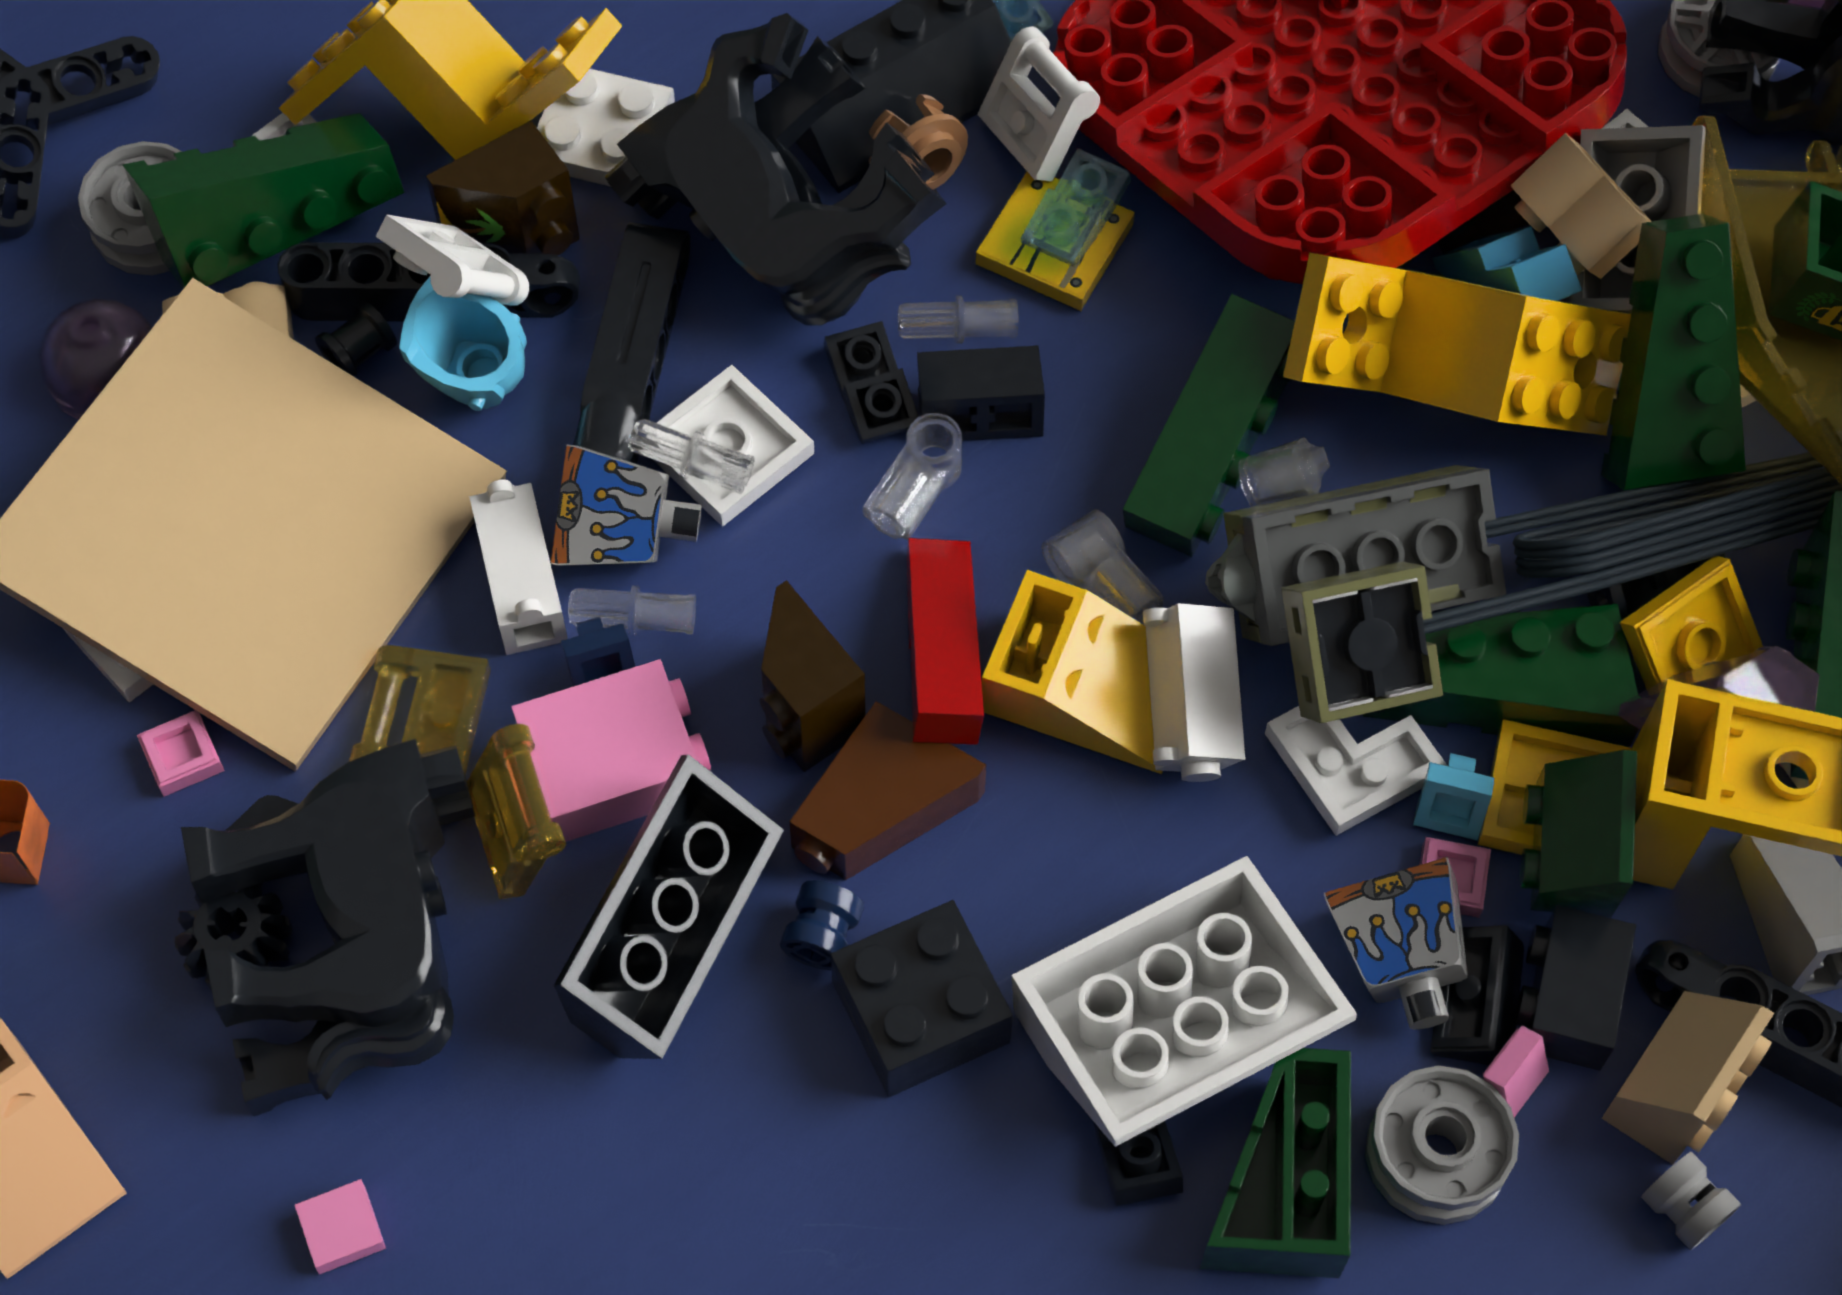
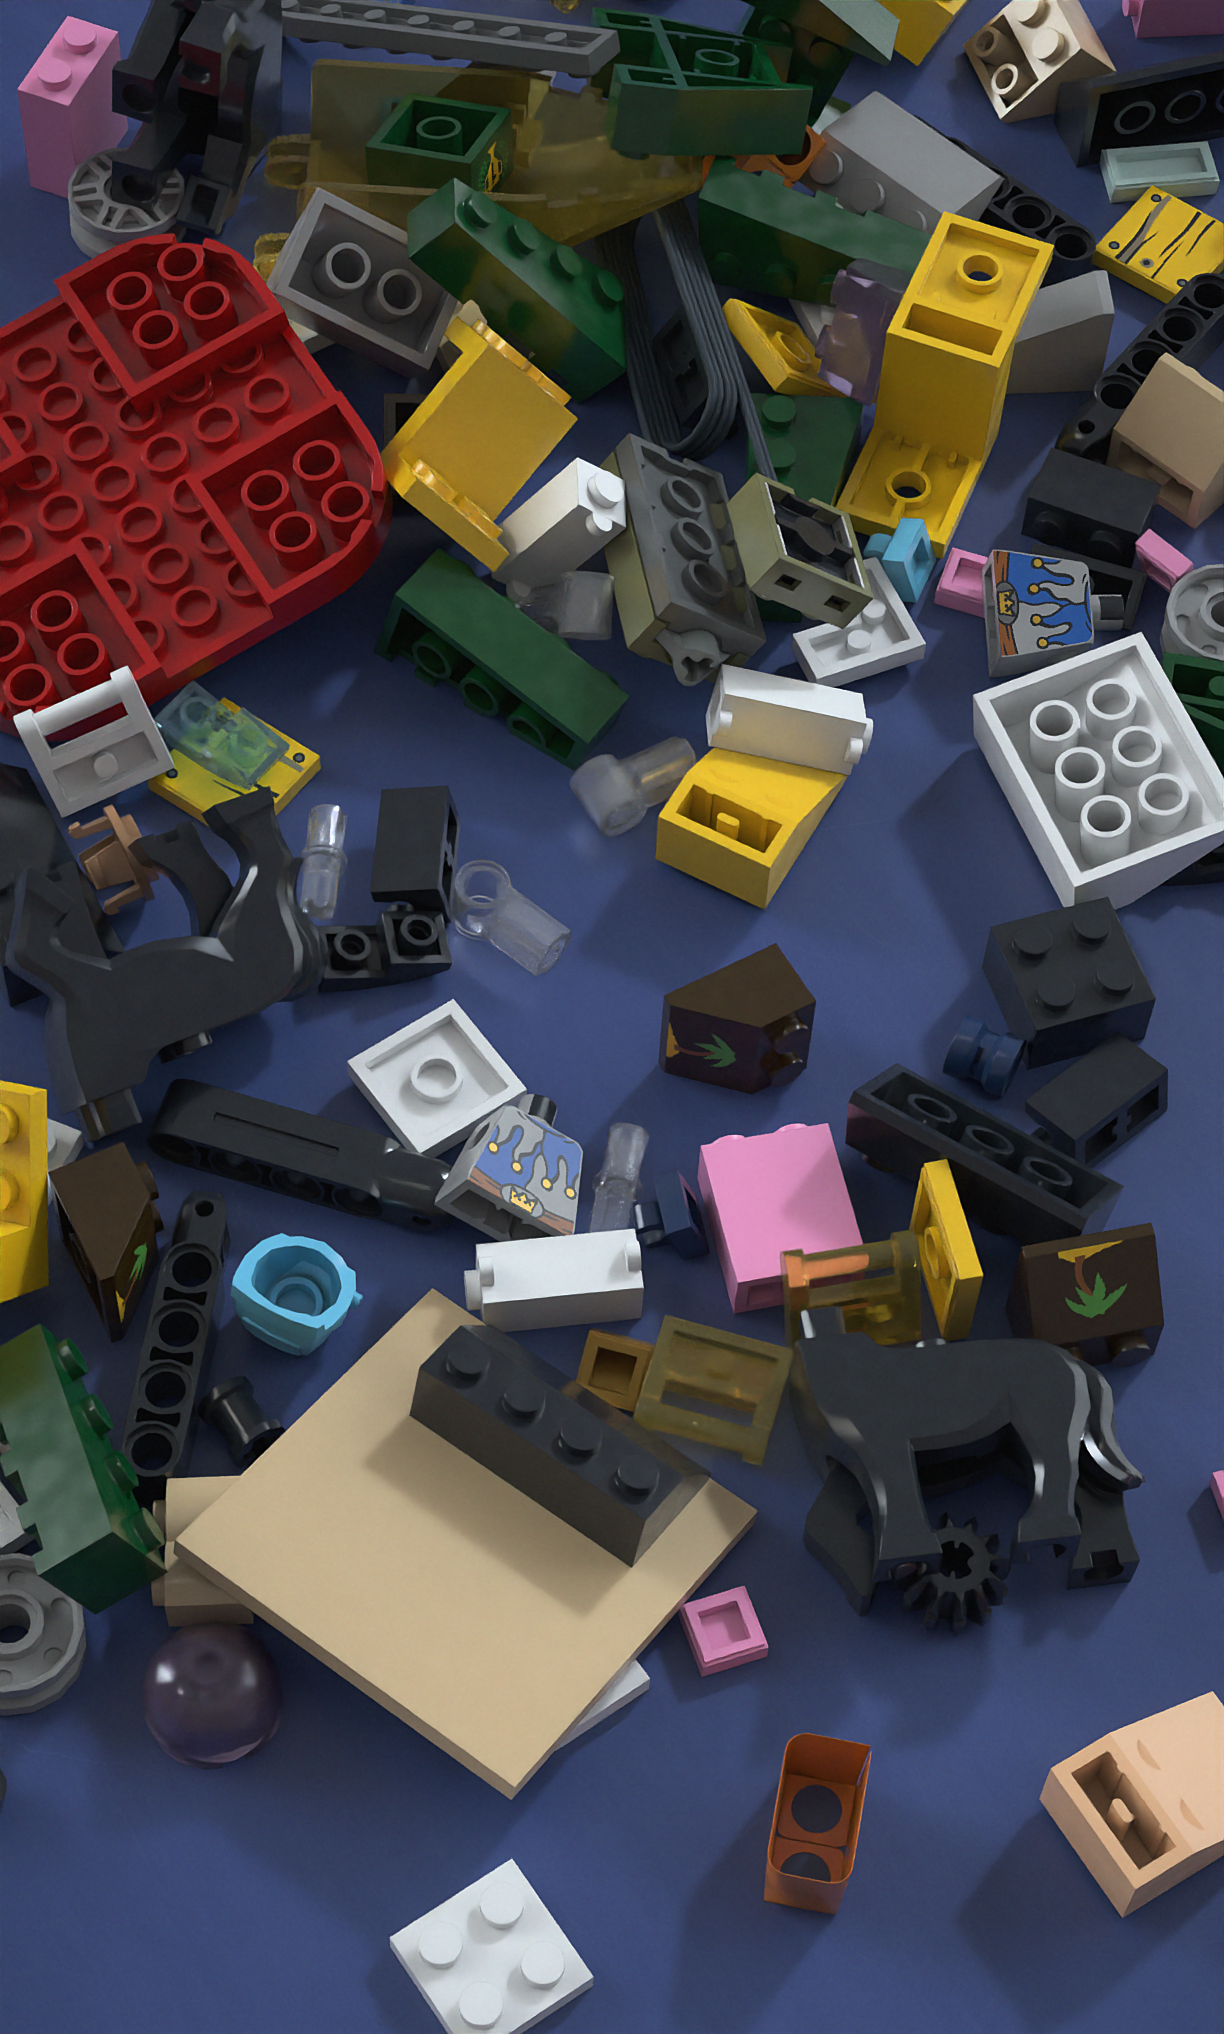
camera: 85 degrees left, 5 degrees down
(337, 574) = (554, 1440): none -> black slope
(449, 627) = (614, 1367): none -> pearl gold slope
(453, 260) = (212, 1265): white plate -> none
(520, 1034) = (1091, 1295): none -> dark brown slope
(556, 888) = (946, 1251): none -> yellow tile
(692, 455) = (467, 1094): clear axle -> none
(780, 1041) = (1100, 1101): none -> black hinge
(881, 795) = (860, 990): reddish brown slope -> none
(943, 642) = (673, 914): red slope -> none
(1377, 443) = (560, 527): none -> white brick
(1512, 264) = (393, 389): dark azure slope -> none
(1580, 207) = (358, 311): tan brick -> none
(1581, 833) = (981, 449): dark green slope -> none

